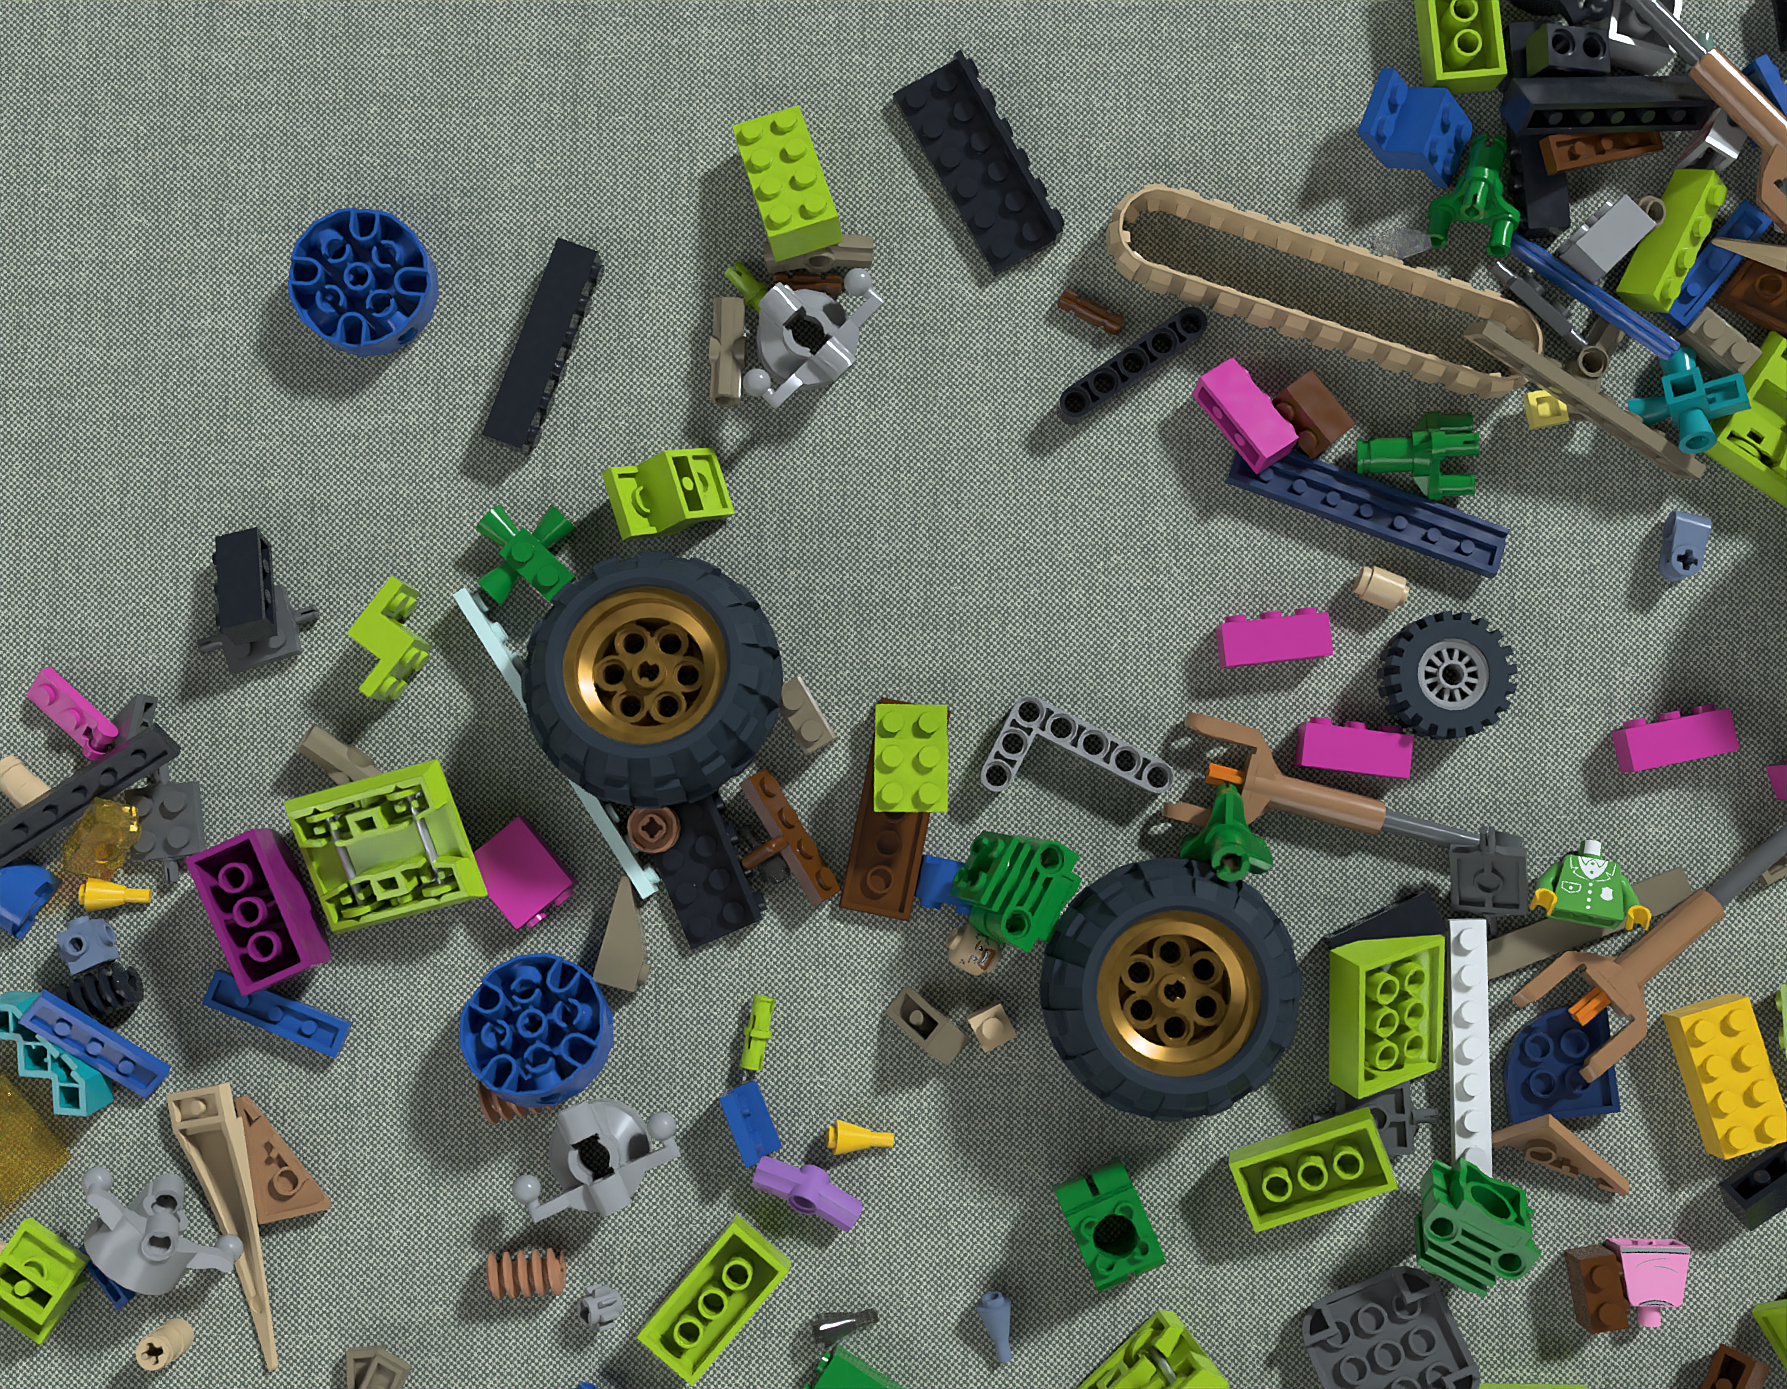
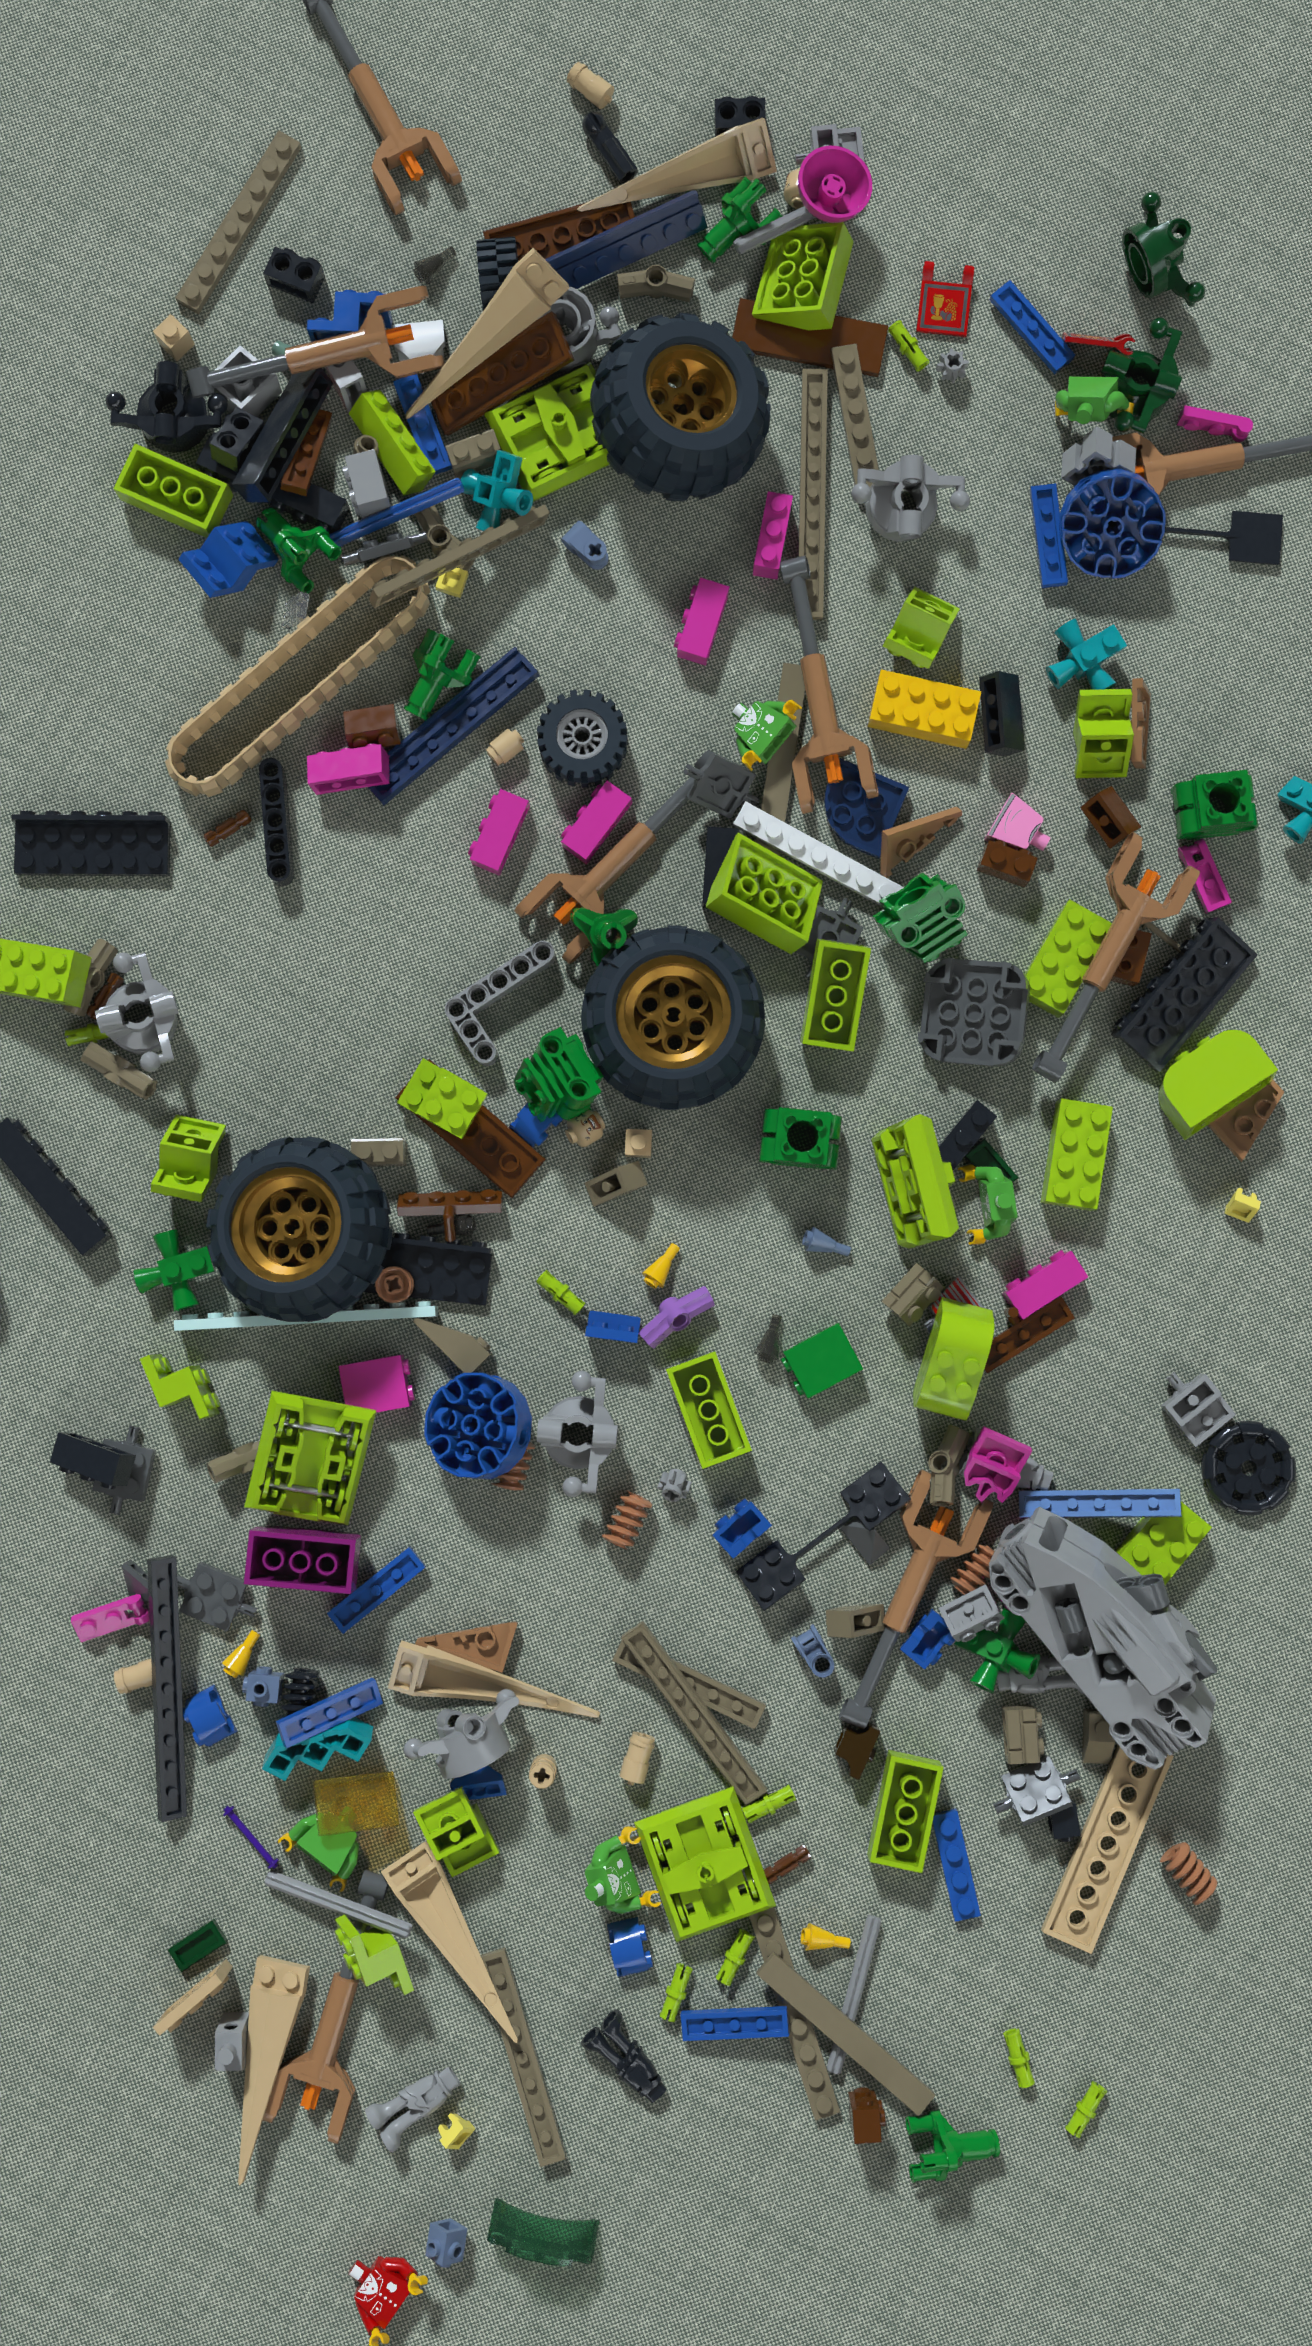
camera: 55 degrees left, 0 degrees up
(101, 839) = (201, 1639): clear yellow brick -> none

